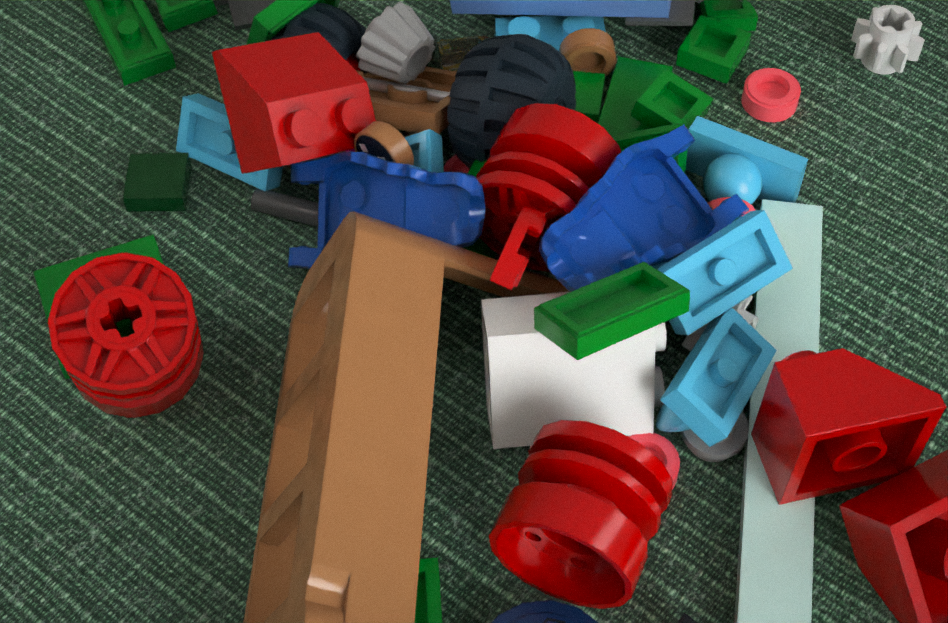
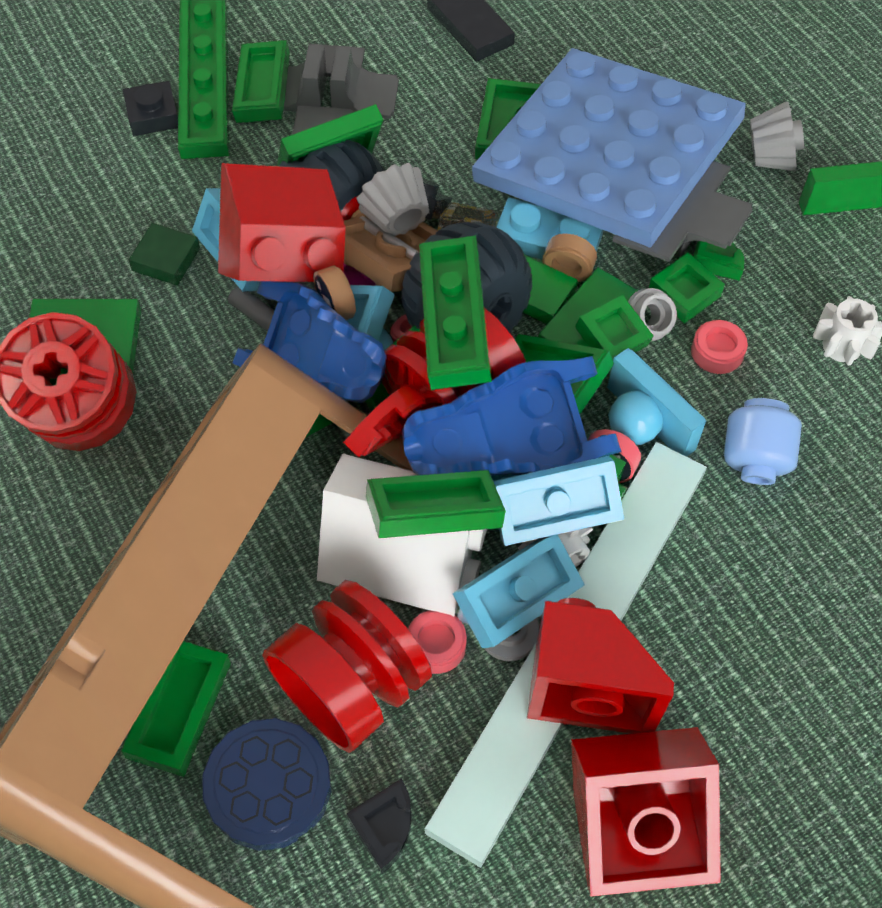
camera: 20 degrees right, 5 degrees up
(68, 43) = (150, 108): none -> black plate
(538, 119) = (454, 313): none -> green tile
(699, 73) = (662, 310): none -> light grey plate
(863, 163) = (762, 440): none -> light blue head

